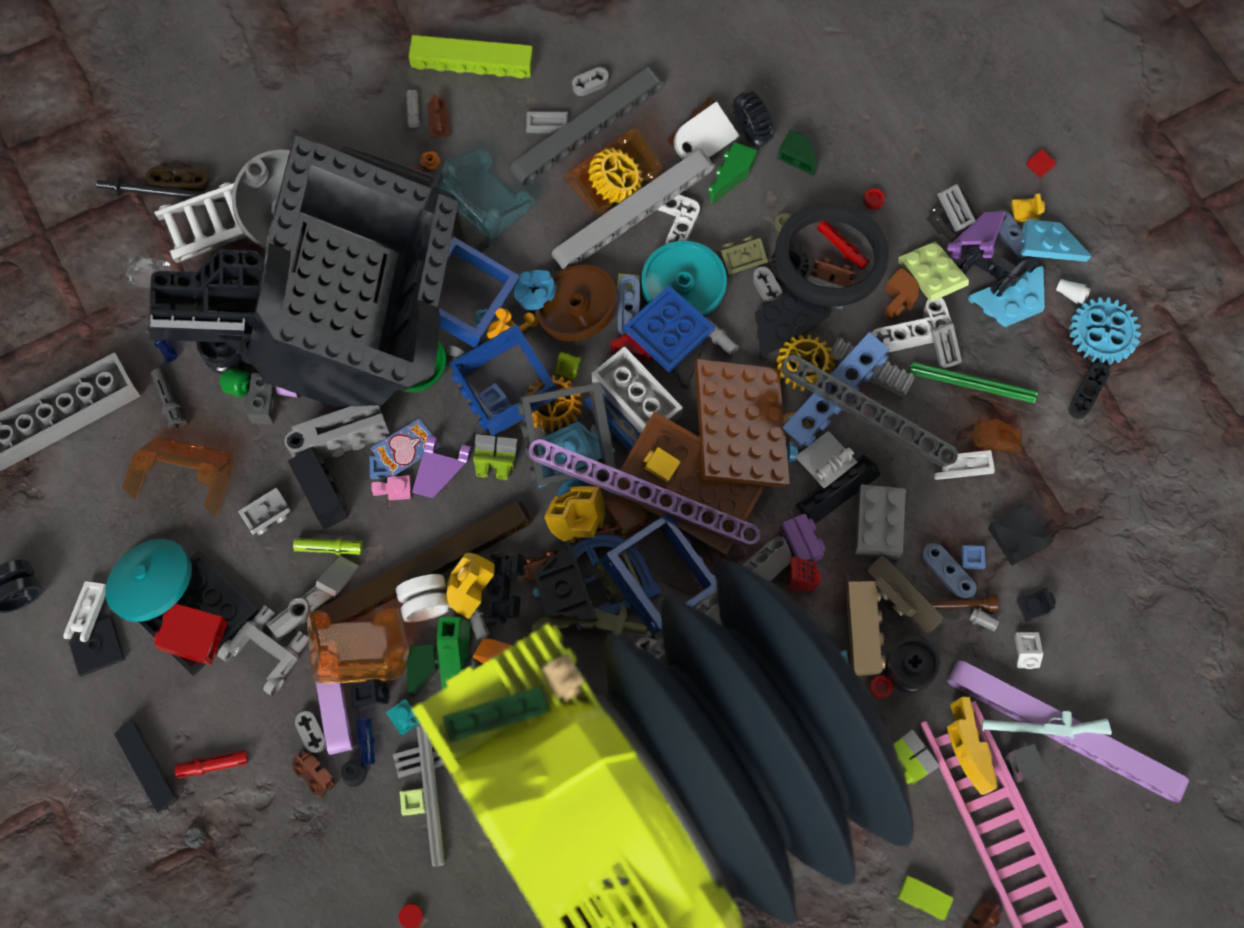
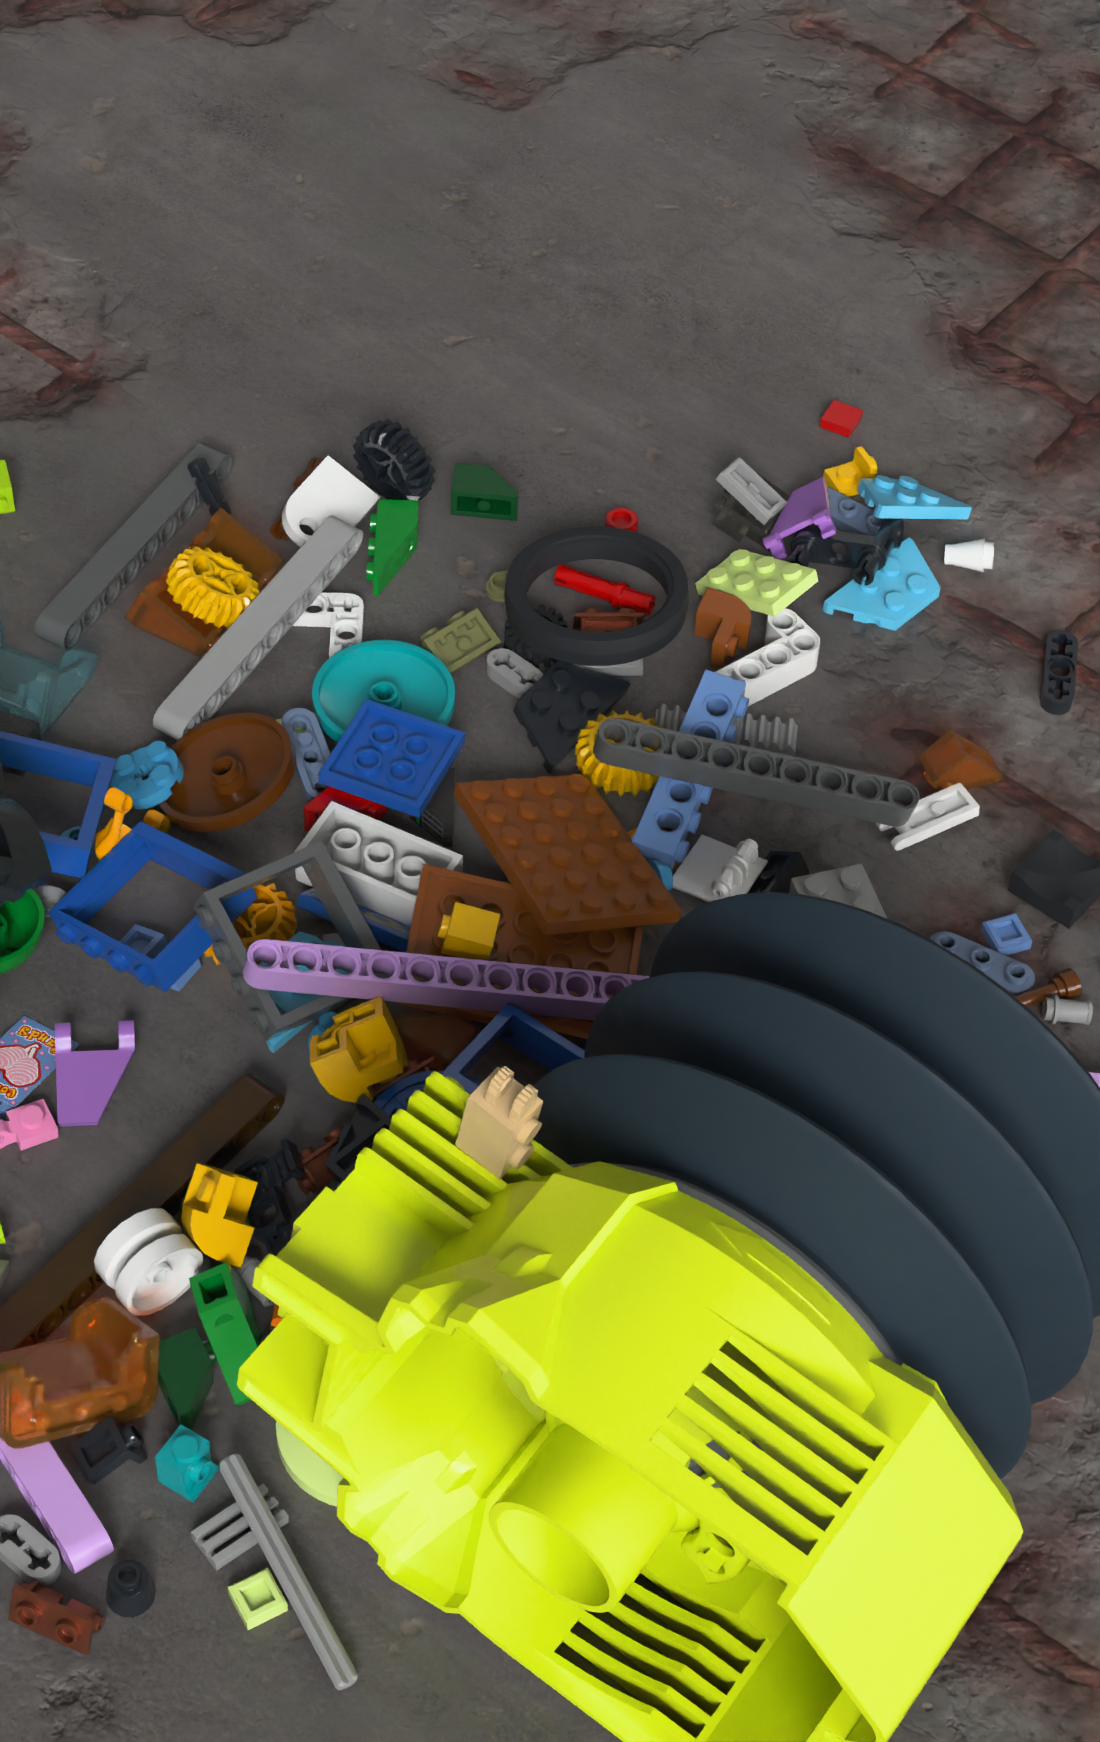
camera: 25 degrees left, 20 degrees down
(366, 741) = (132, 1527): clear blue axle -> none
(485, 455) = (196, 1028): lime hips -> none
(496, 714) = (407, 1227): dark green plate -> none
(545, 121) = (63, 558): light grey tile -> none
(568, 366) = (247, 857): lime tile -> none
(590, 81) = (114, 489): light grey beam -> none
(640, 102) = (207, 486): none -> black axle
(720, 337) = (474, 759): light grey pin -> none
(938, 347) = (820, 670): light grey tile -> none
(973, 382) = (887, 708): green axle -> none
(1105, 330) = (1041, 590): medium azure gear -> none

